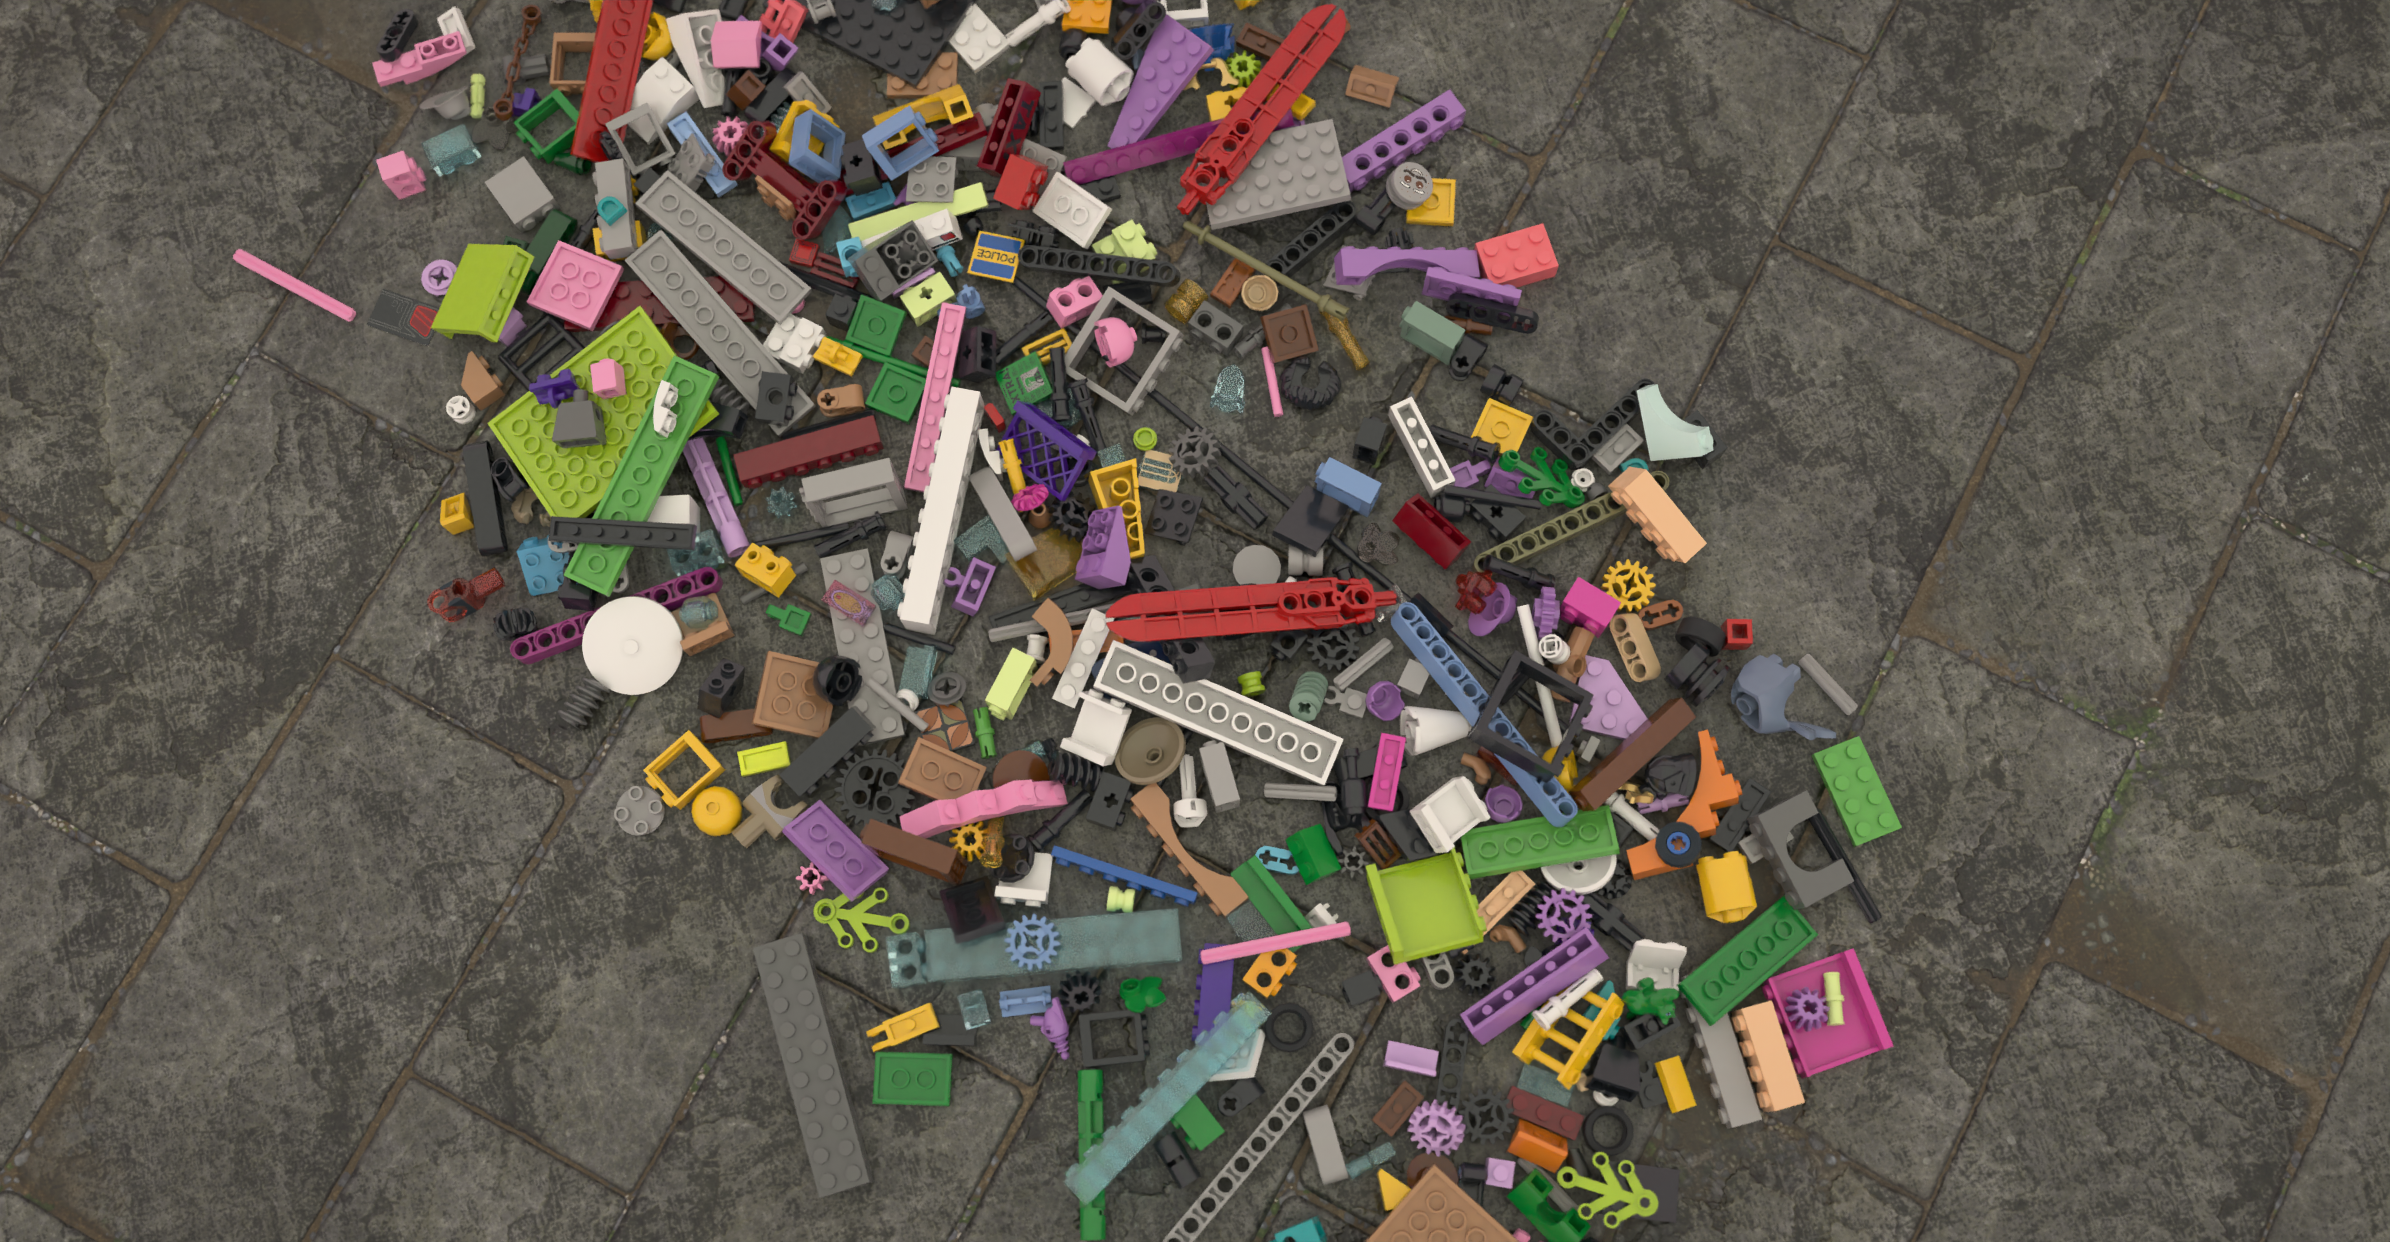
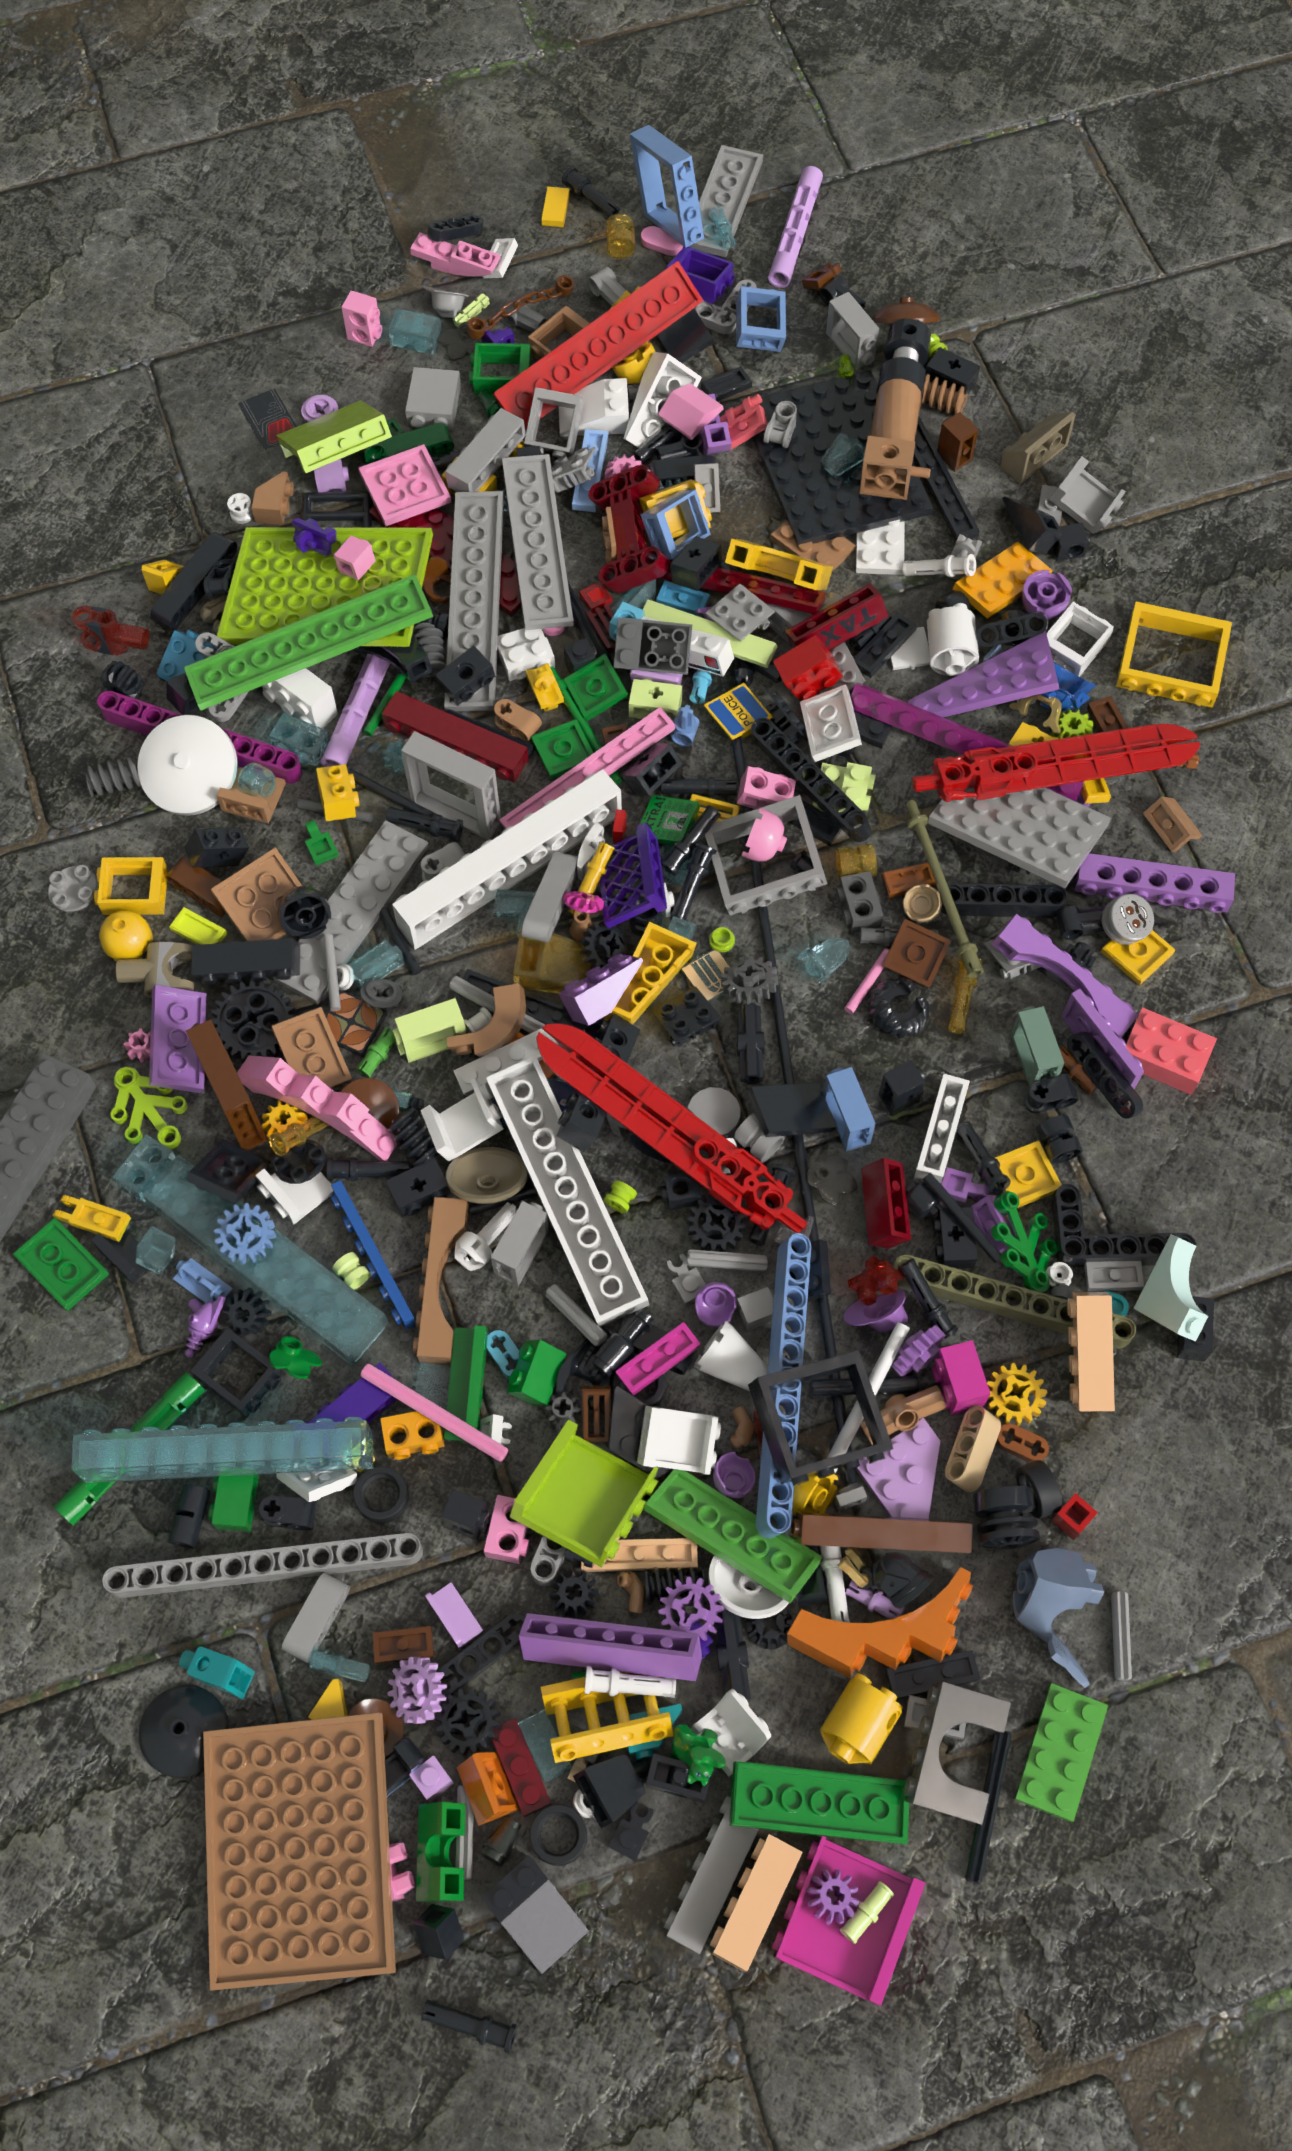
camera: 40 degrees right, 10 degrees down
(294, 285) = (217, 339): bright pink axle -> none
(579, 423) = (303, 572): dark grey torso -> none
(609, 146) = (524, 407): black gear -> none
(611, 209) = (478, 446): teal tile -> none
(622, 533) = (253, 670): black tile -> none
(663, 418) = (361, 607): white slope -> none
(745, 90) = (665, 446): reddish brown panel -> none
(848, 603) = (371, 867): clear pink tile -> none
(887, 592) = (406, 880): clear light blue head -> none
(911, 156) = (715, 563): medium blue window -> none
(971, 585) = (474, 932): medium lavender brick -> none
(1308, 696) = (654, 1242): sand green piece -> none
(1558, 653) = (897, 1385): white wheel -> none
(1612, 1192) = (506, 1884): lime plant -> none
(1675, 1084) = (655, 1852): yellow tile -> none
(1689, 837) = (846, 1657): black bush -> none

